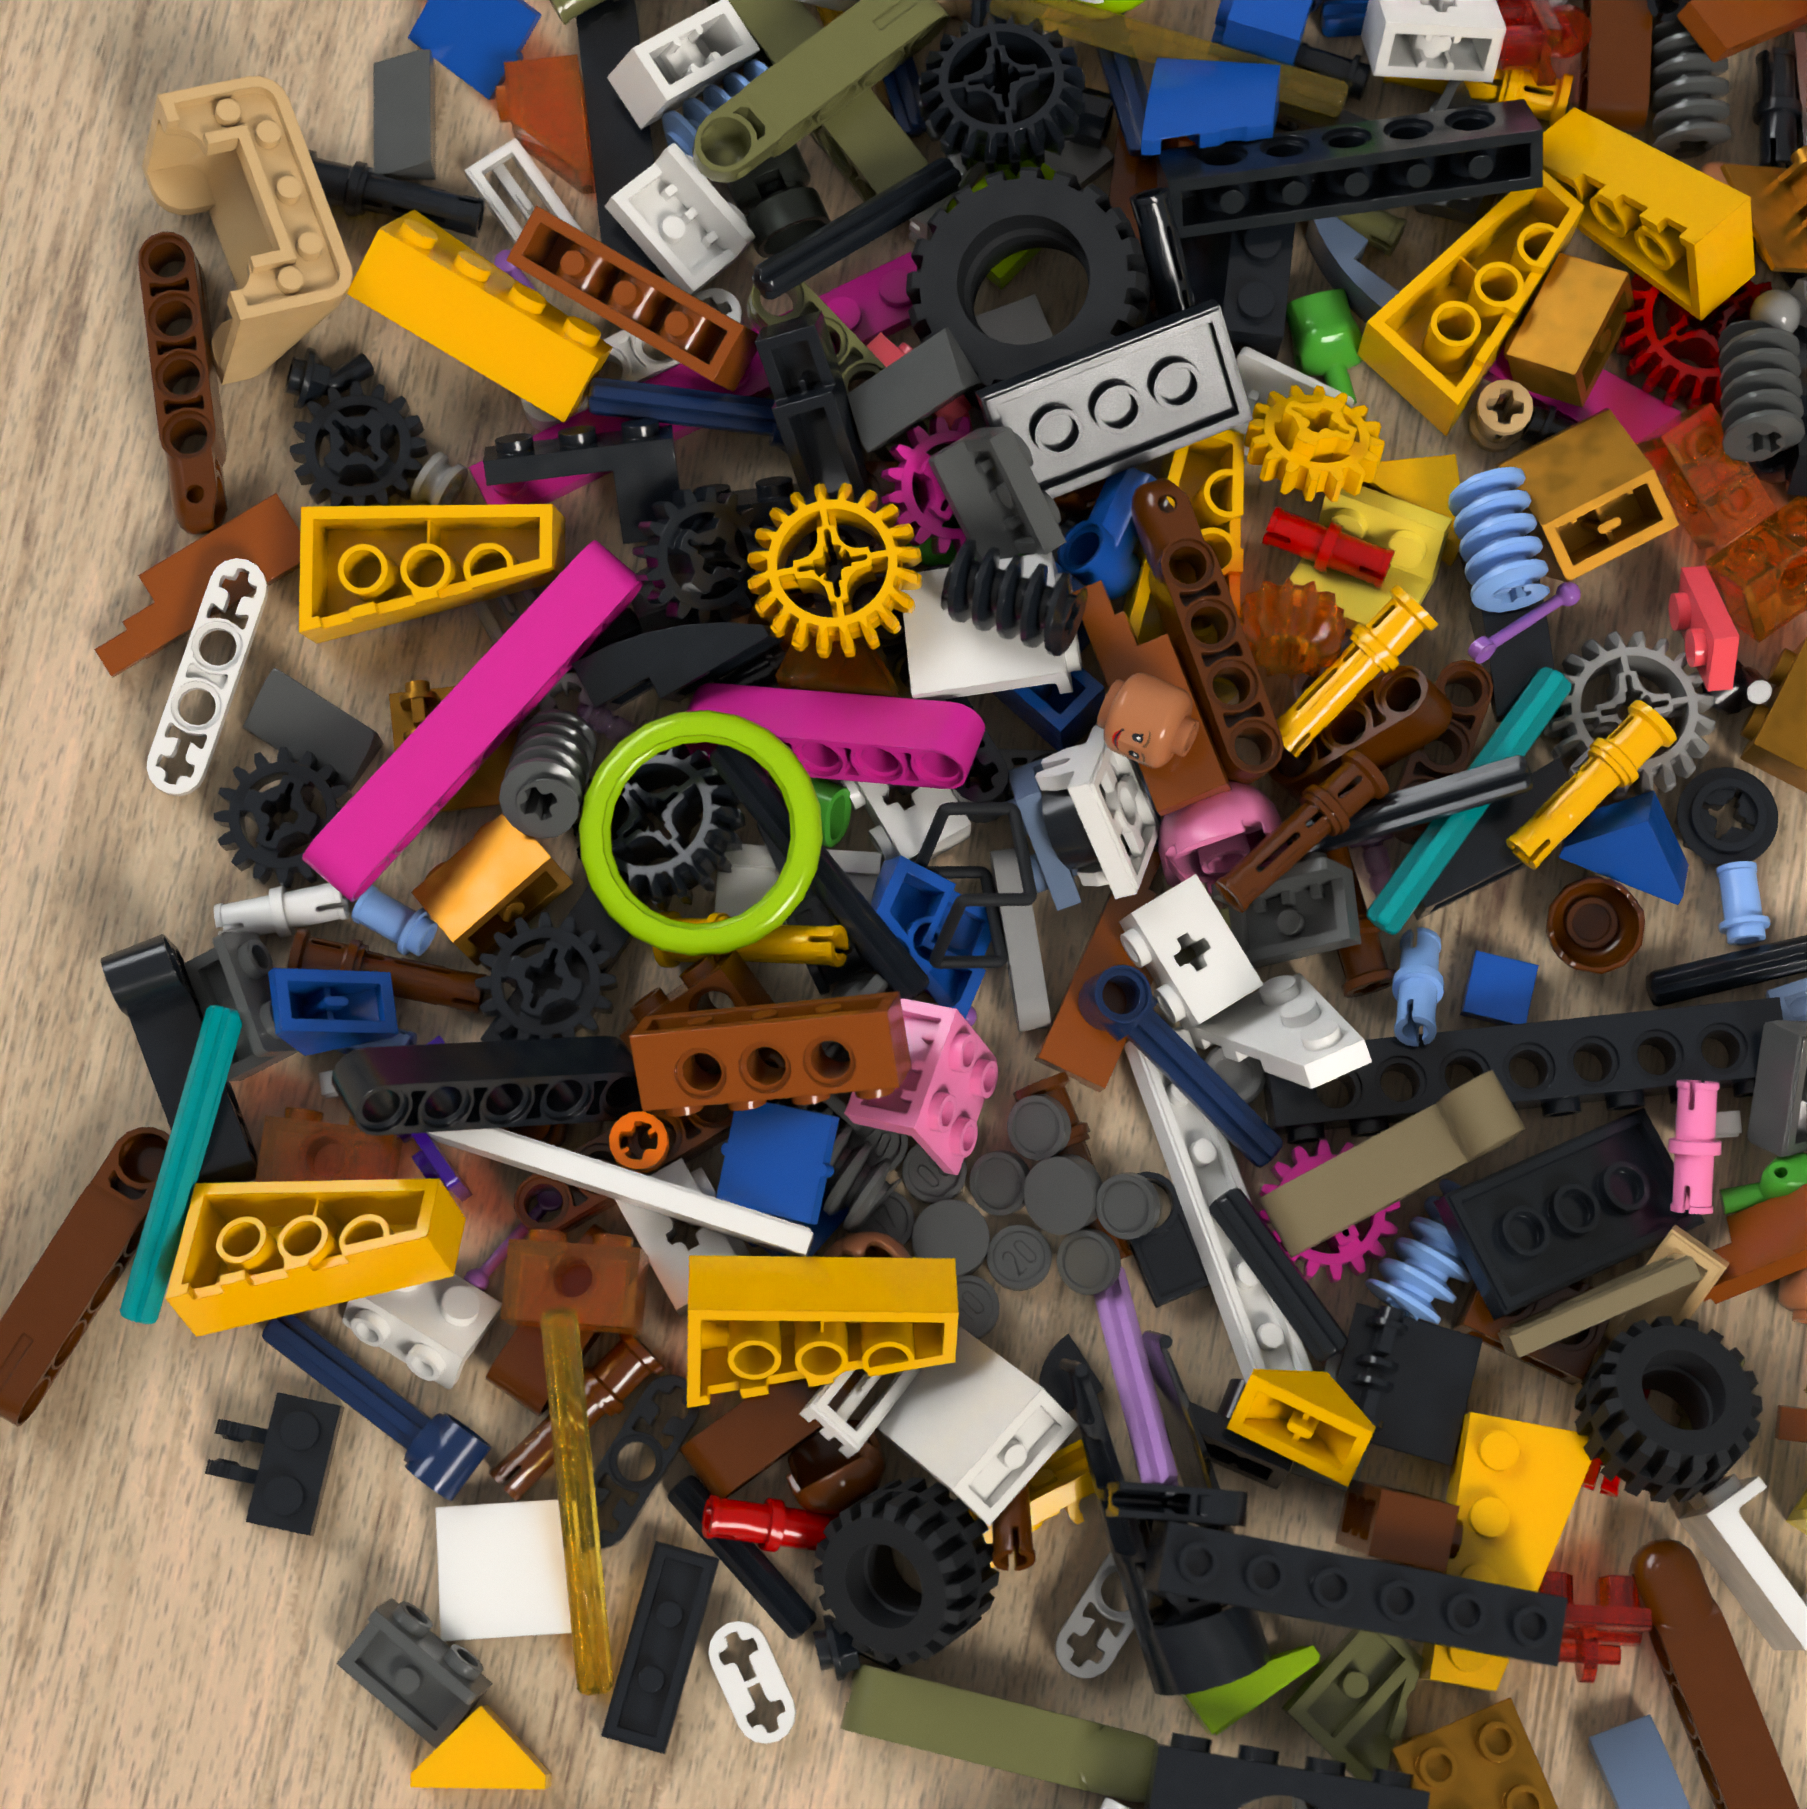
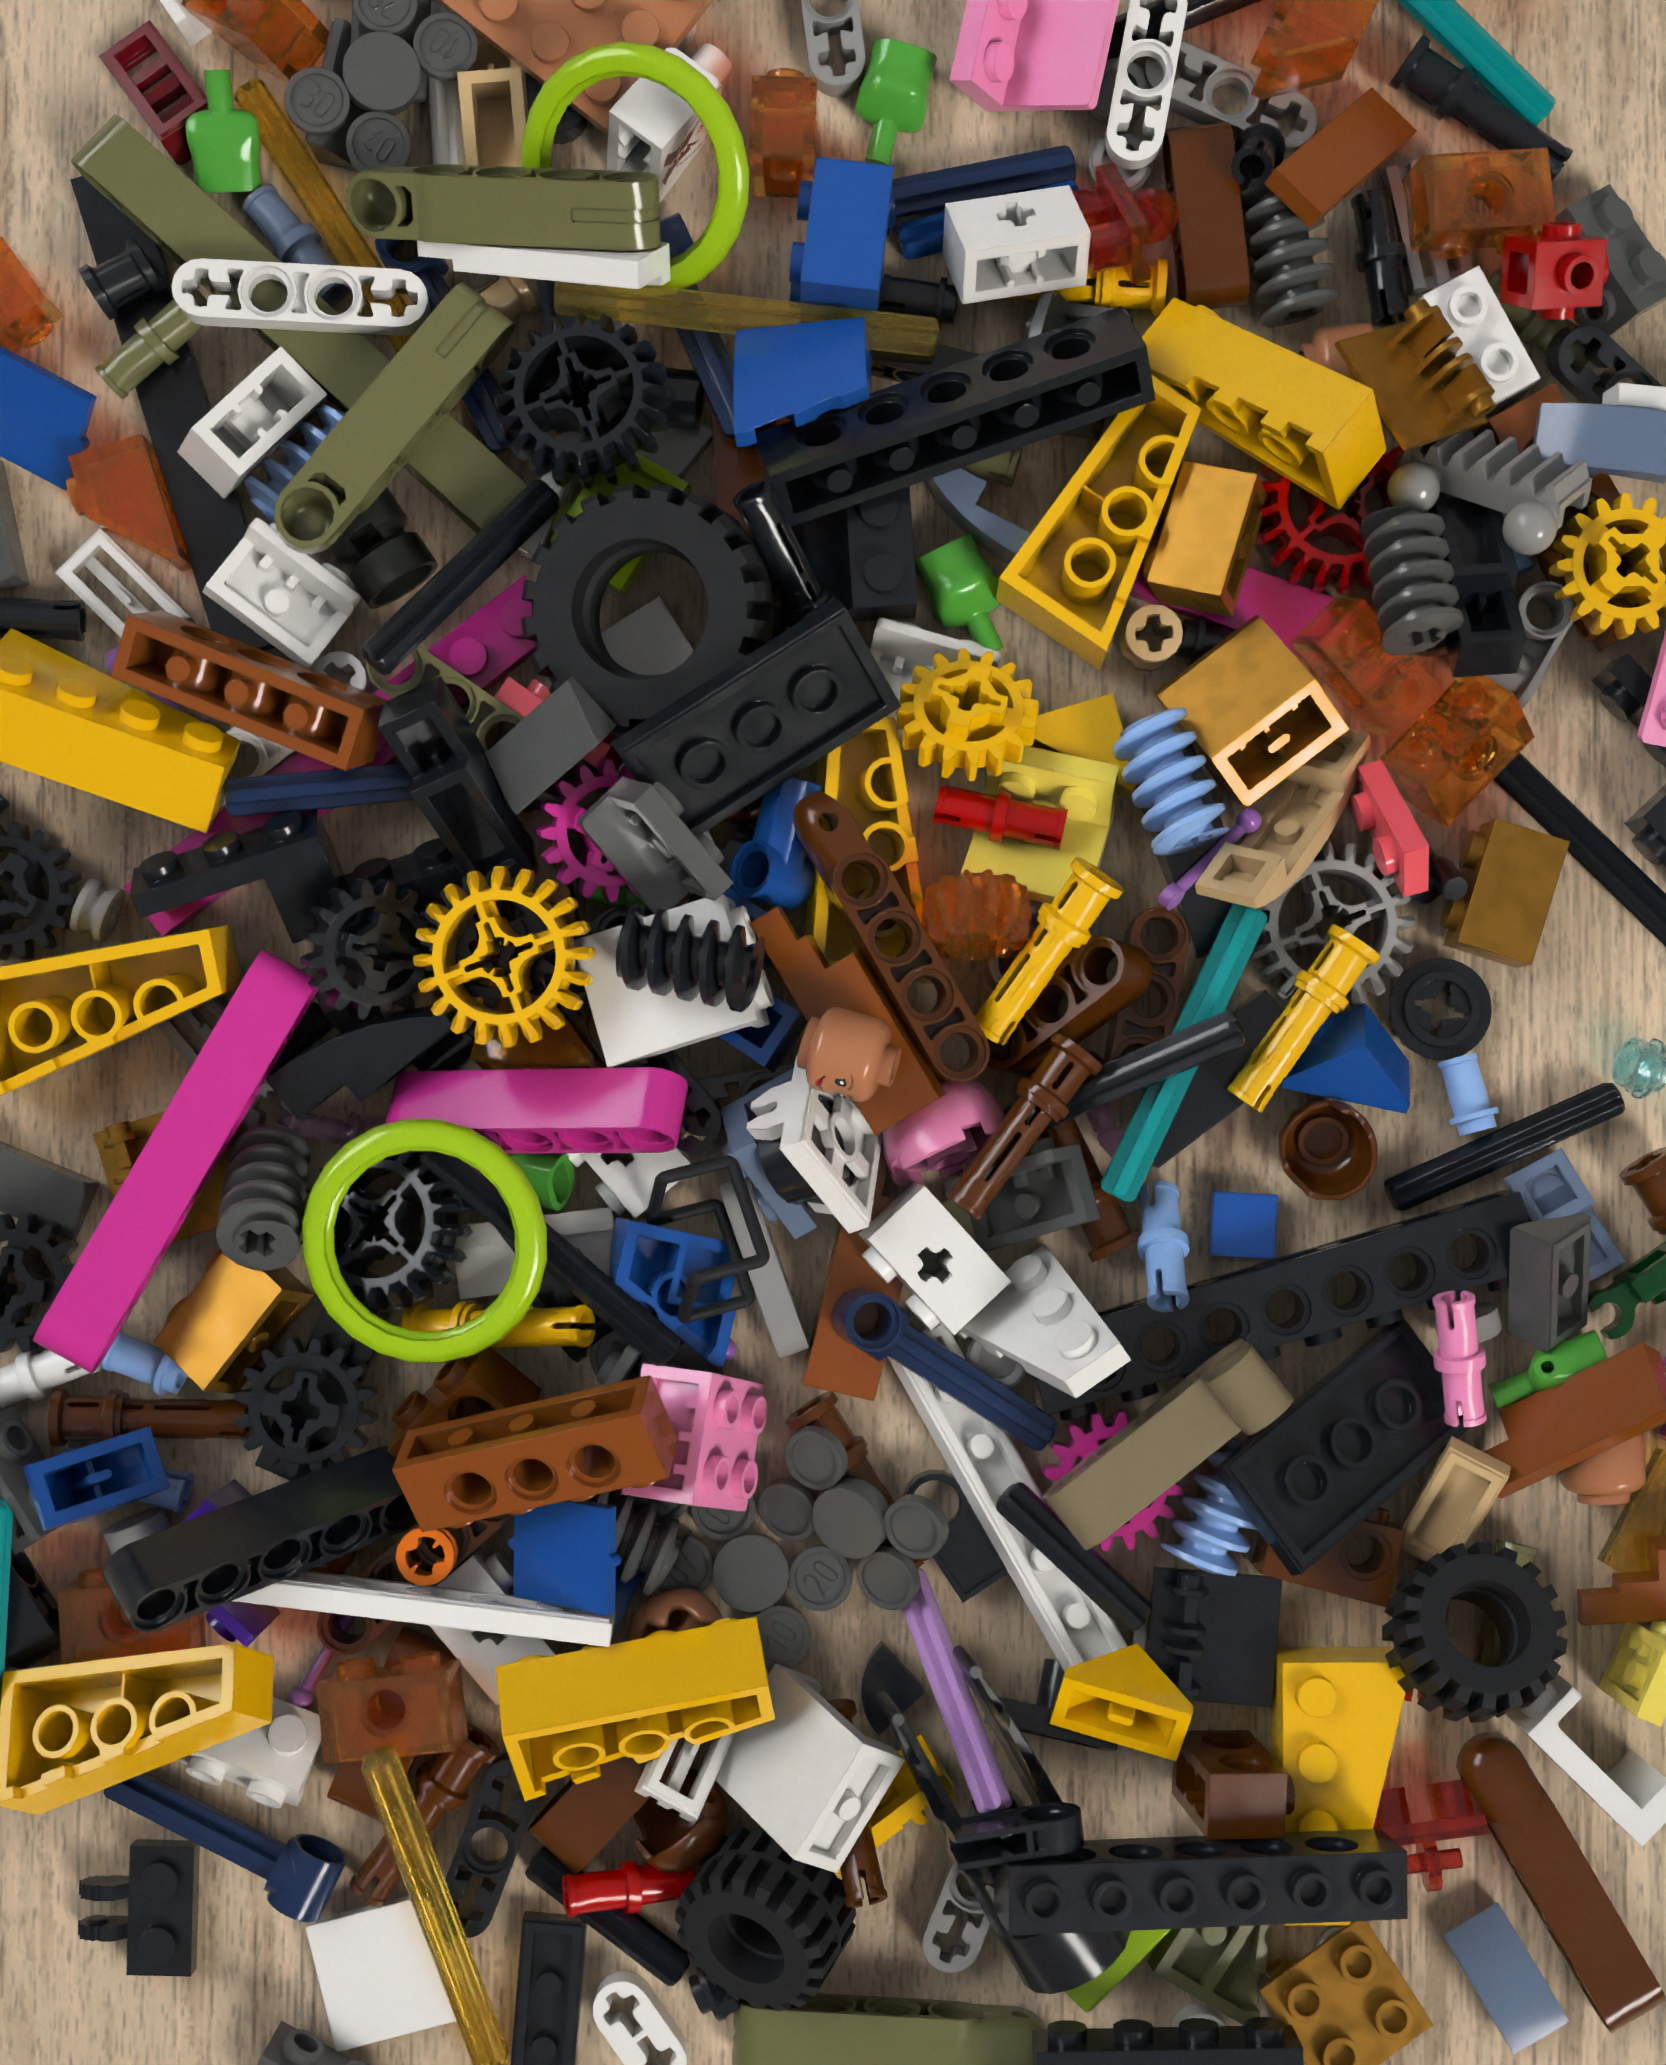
camera: 10 degrees left, 10 degrees up
(1598, 1304) = (1391, 1542): dark tan tile -> none
(1614, 606) = (1290, 828): none -> tan slope

